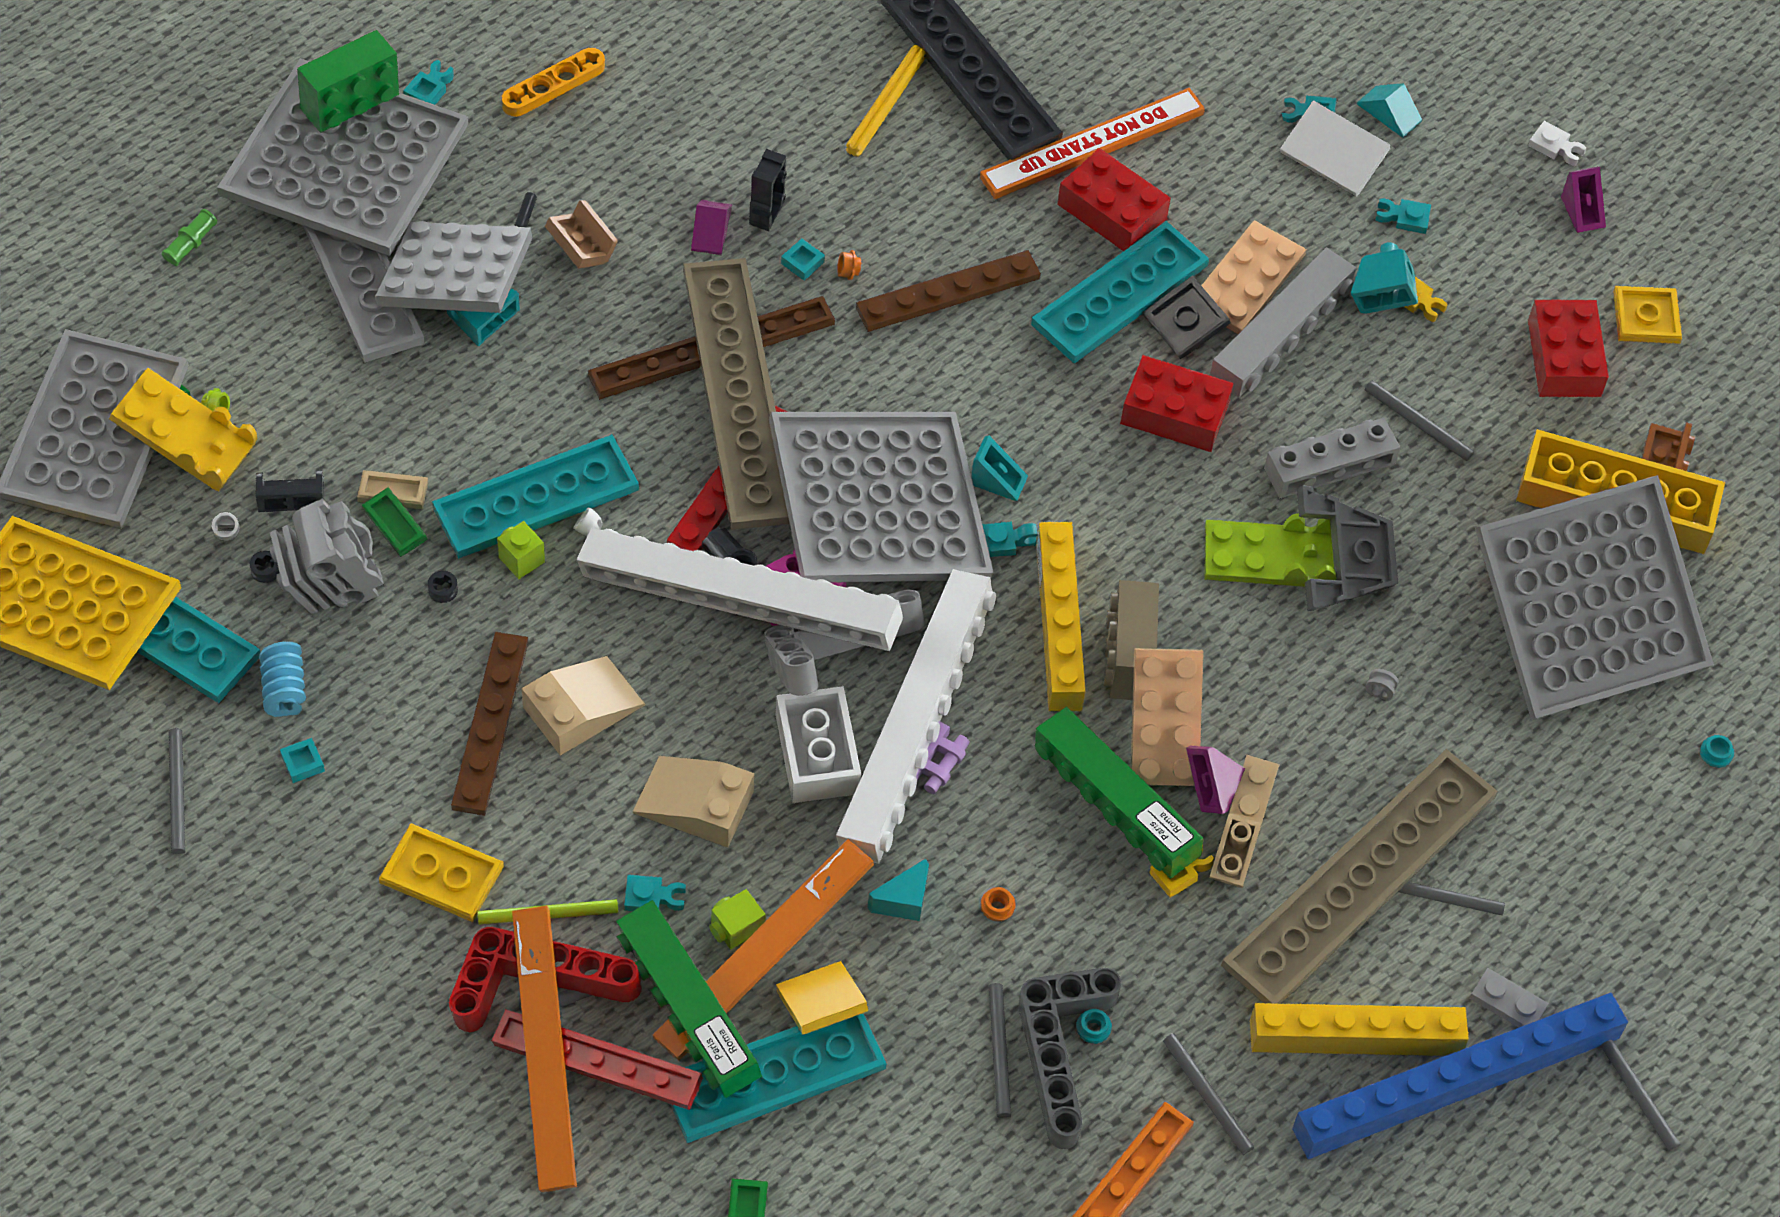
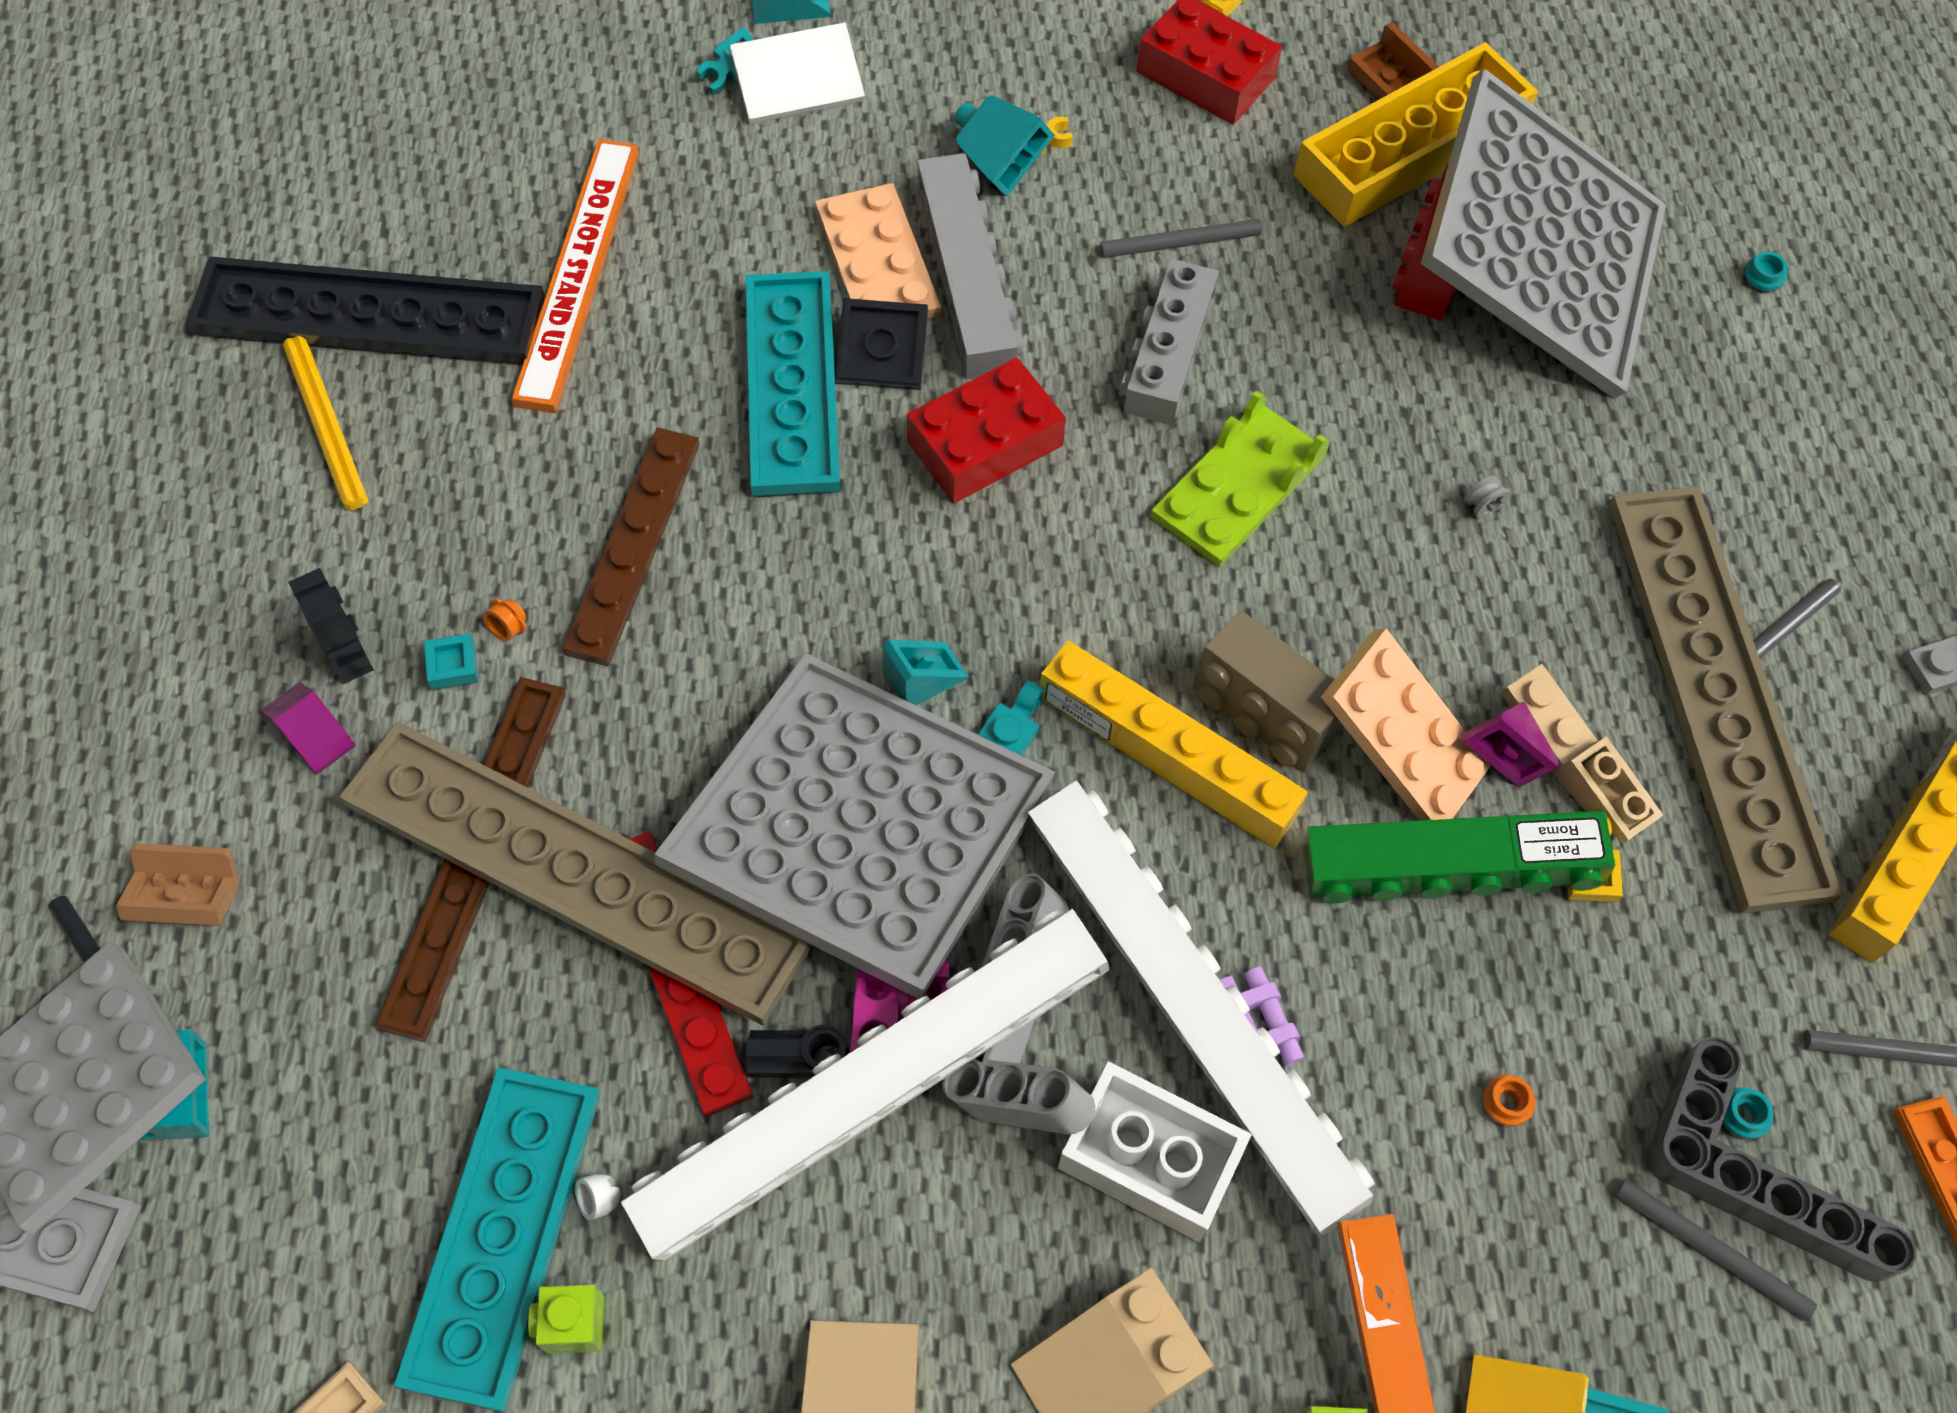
camera: 50 degrees left, 5 degrees up
(901, 895) = (1432, 1200): teal slope -> none
(1113, 200) = (675, 302): red brick -> none
(1361, 550) = (1315, 397): dark grey wing -> none
(1409, 214) = (927, 73): teal plate -> none

